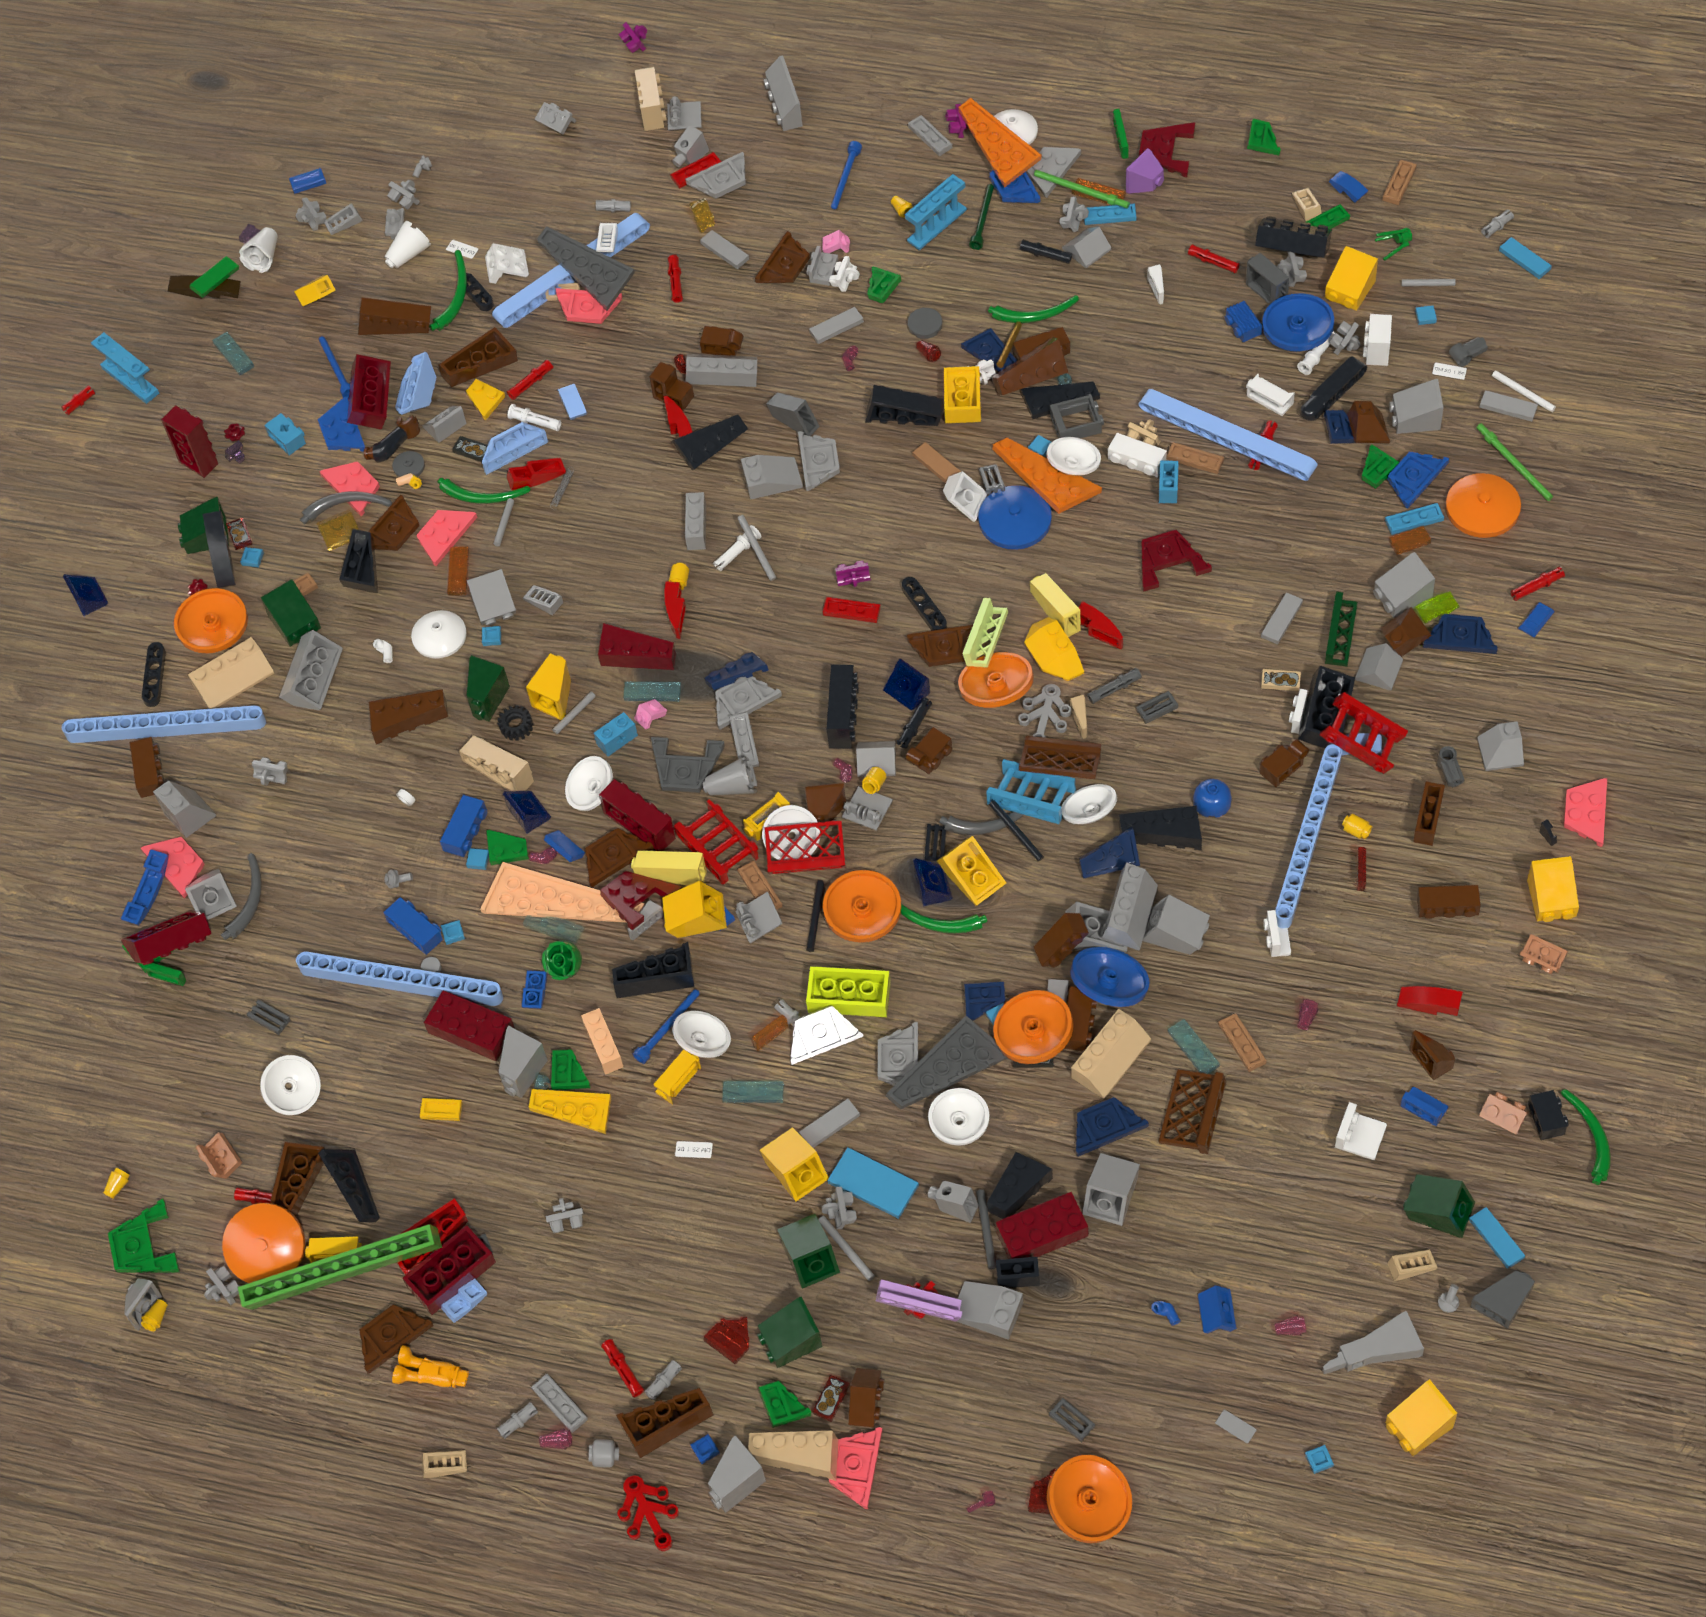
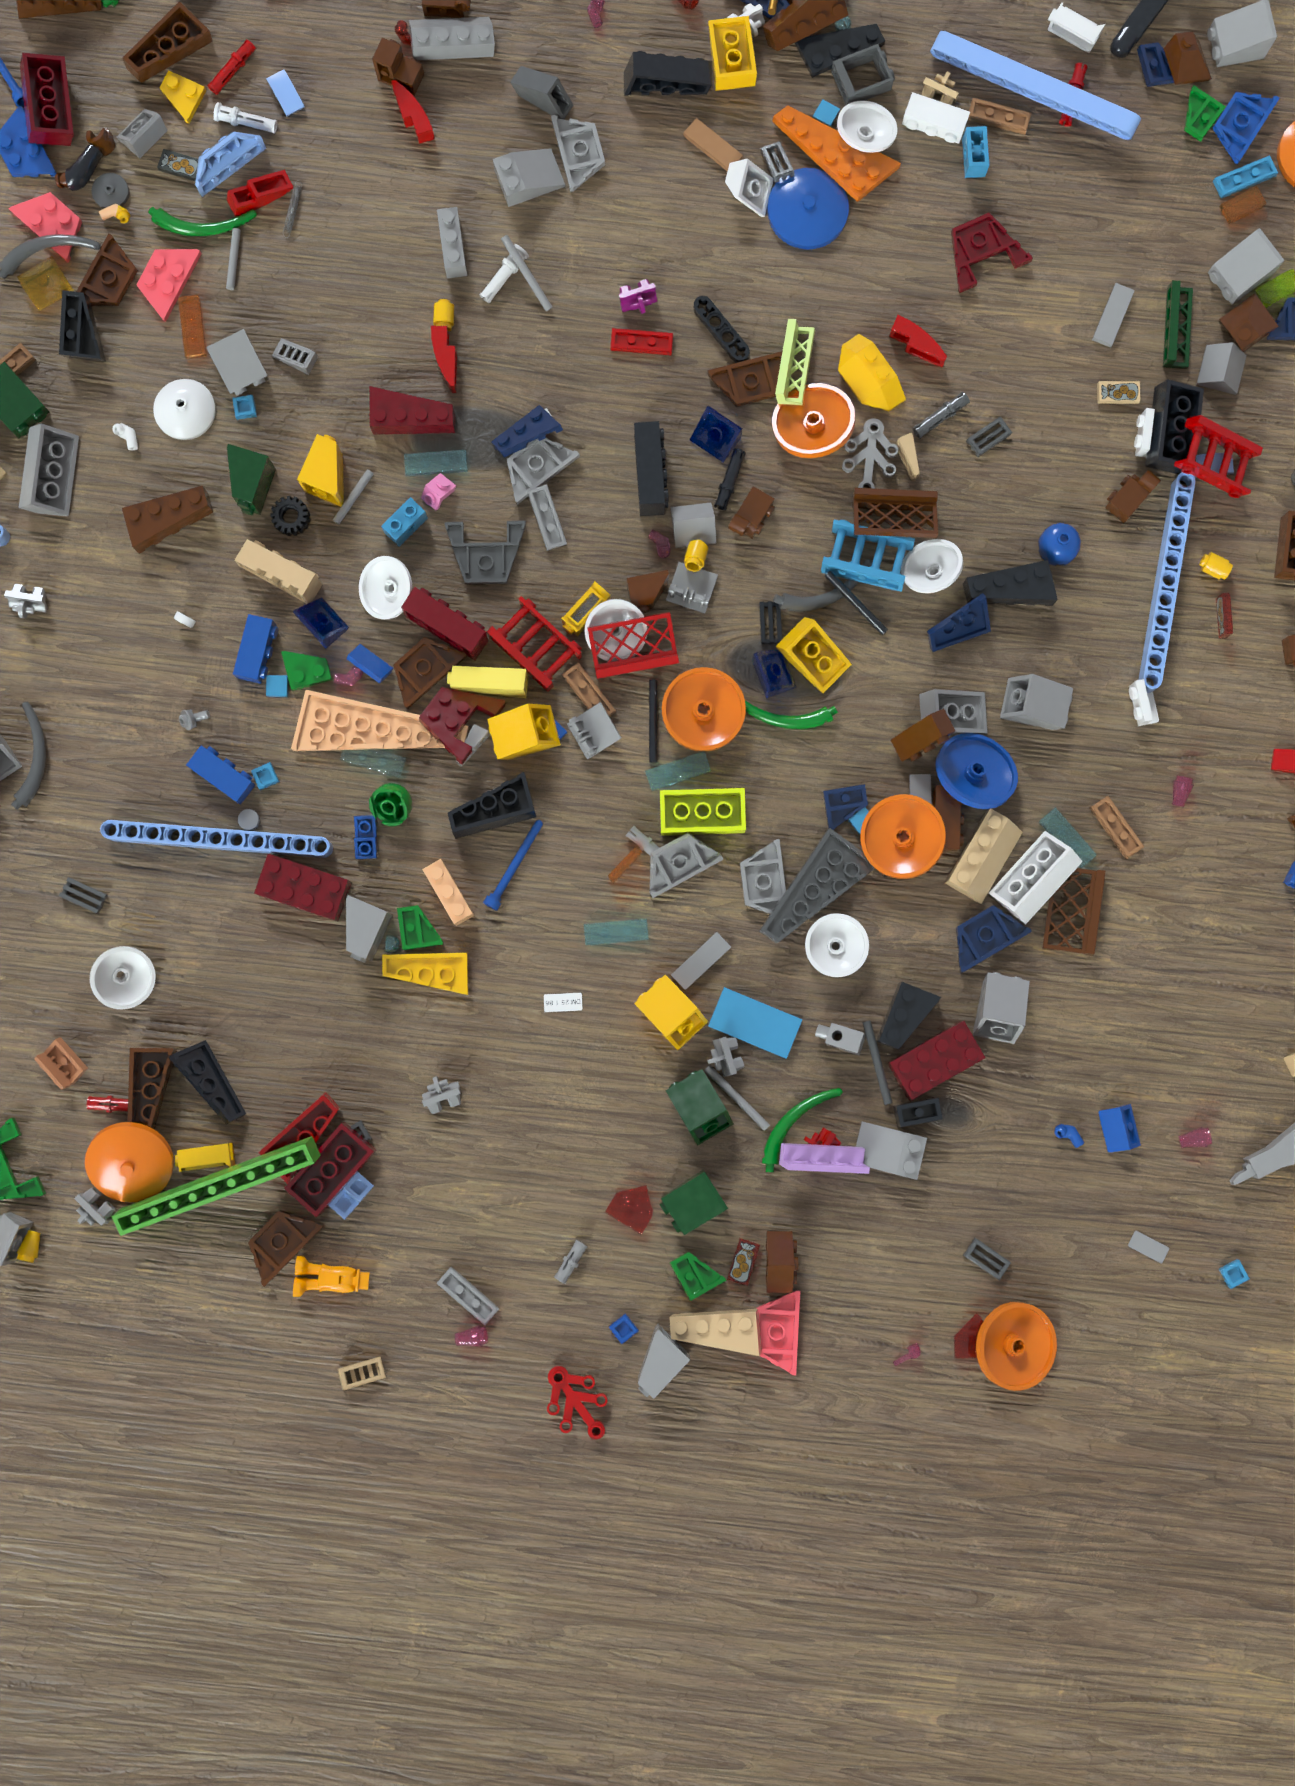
camera: 15 degrees left, 25 degrees up
(416, 385) = (100, 86): light blue wedge -> none
(441, 1109) = (289, 983): yellow tile -> none
(517, 1420) = (428, 1320): light grey pin -> none
(603, 1453) = (522, 1348): light grey head -> none
(618, 1361) = (523, 1248): red pin -> none
(665, 1420) = (572, 1313): reddish brown wedge -> none
(677, 1075) = (534, 923): yellow window -> none
(701, 1034) = (559, 869): white dish -> none
(706, 442) = (448, 138): black wing -> none
(732, 779) = (541, 568): light grey cone -> none
(833, 958) = (678, 771): none -> clear light blue tile
(870, 1305) = (774, 1141): none -> green animal
(1056, 603) = (867, 317): light yellow slope -> none
(1130, 907) = (987, 685): light grey slope -> none
(1157, 1075) = (1035, 877): none -> white slope
(1360, 1134) = (1247, 921): white bracket -> none

